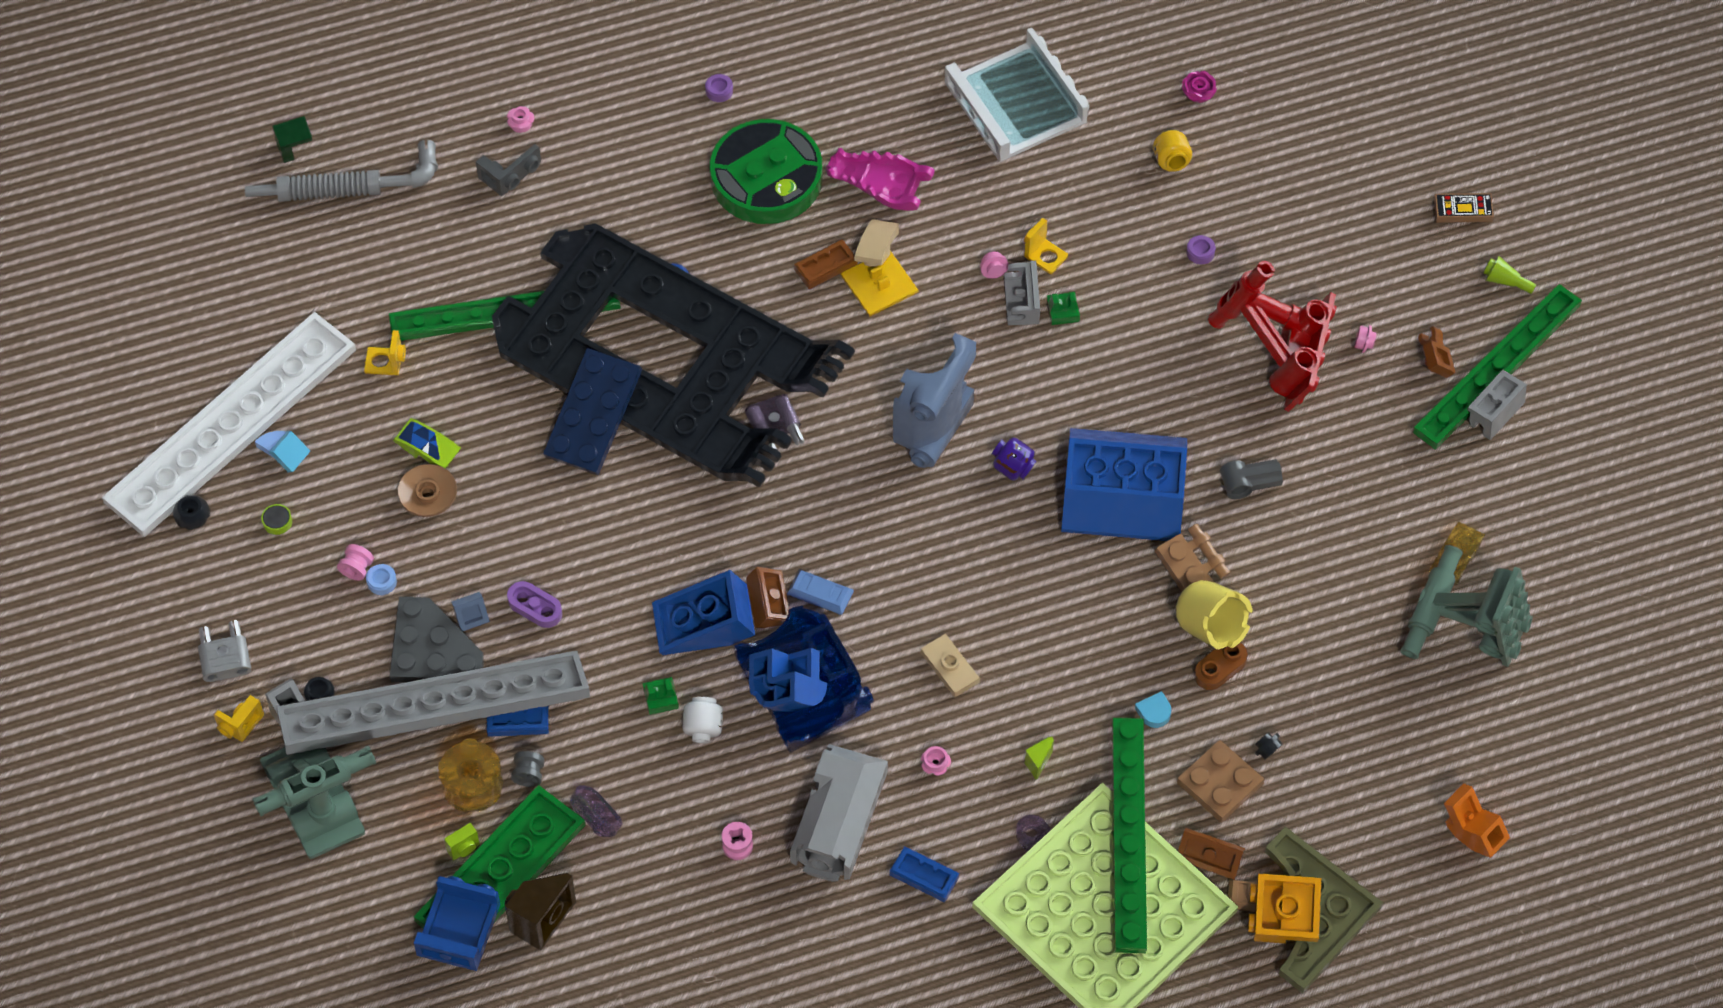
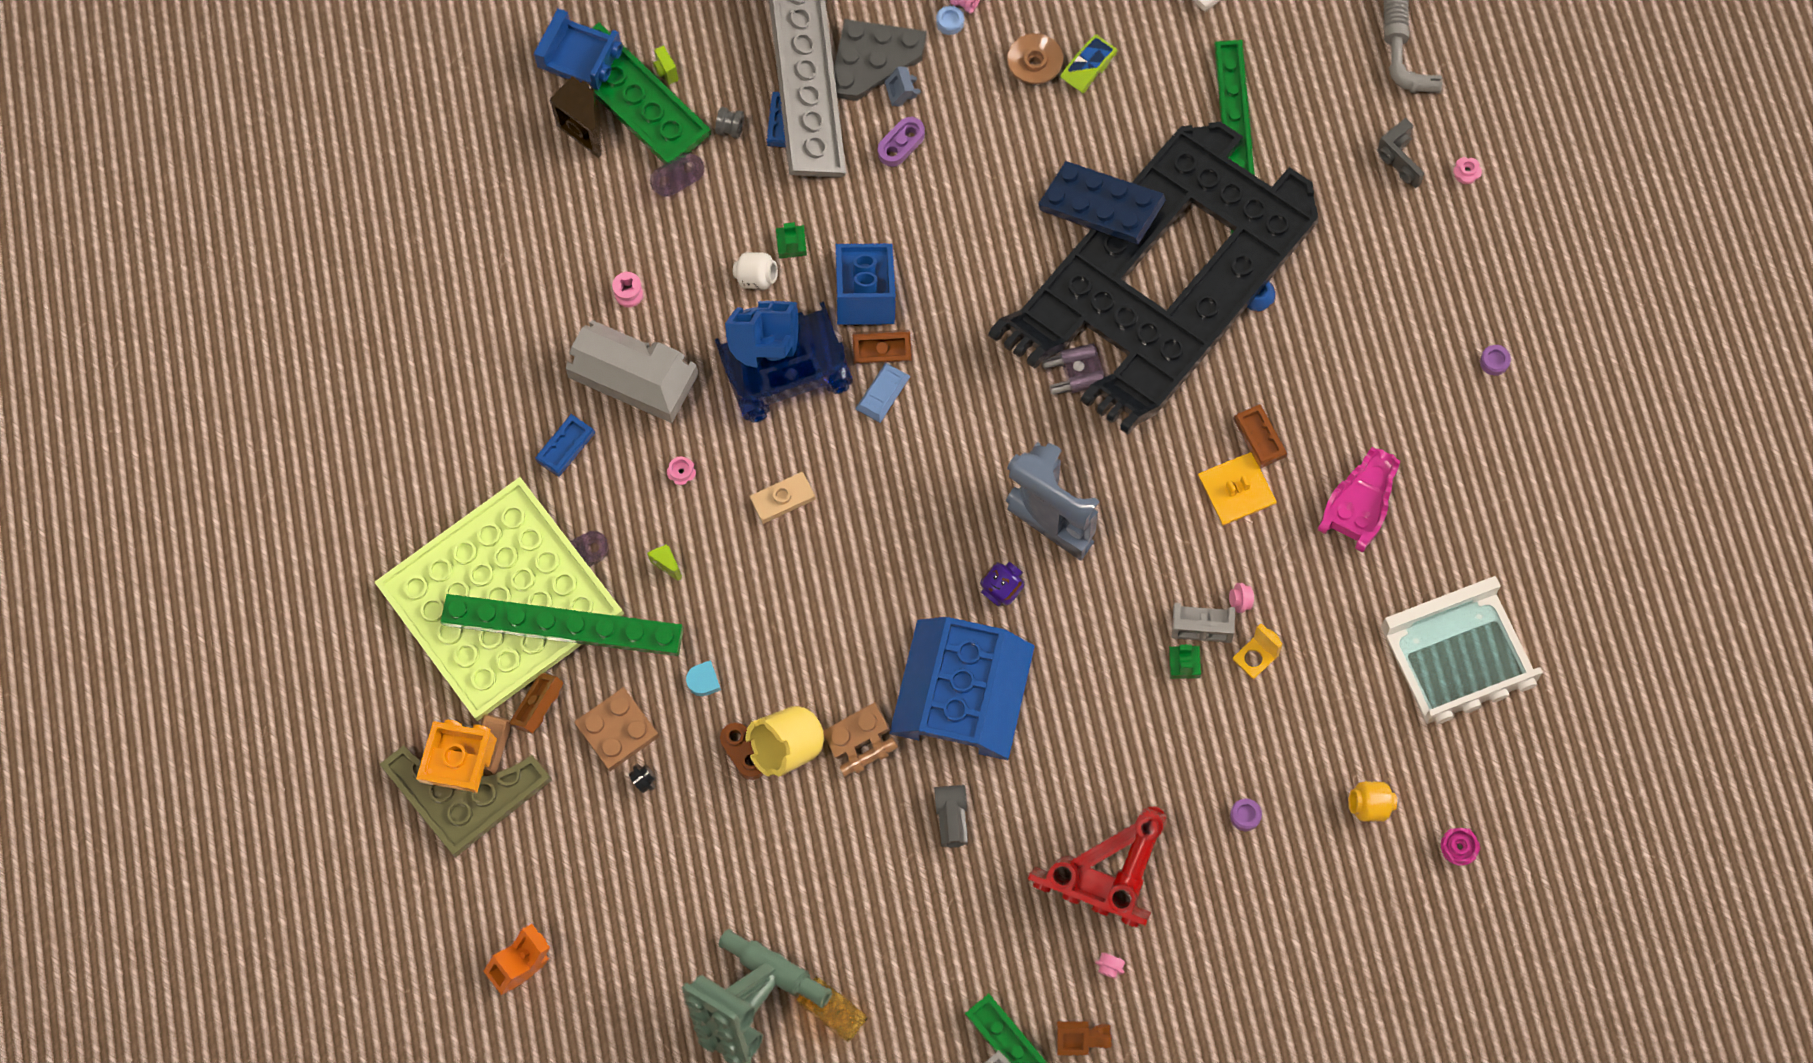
camera: 100 degrees right, 10 degrees up
(395, 354) = (1191, 35): yellow bracket -> none
(471, 776) = (727, 74): clear yellow brick -> none
(766, 171) = (1381, 391): piece -> none
(875, 242) = (1277, 482): tan slope -> none

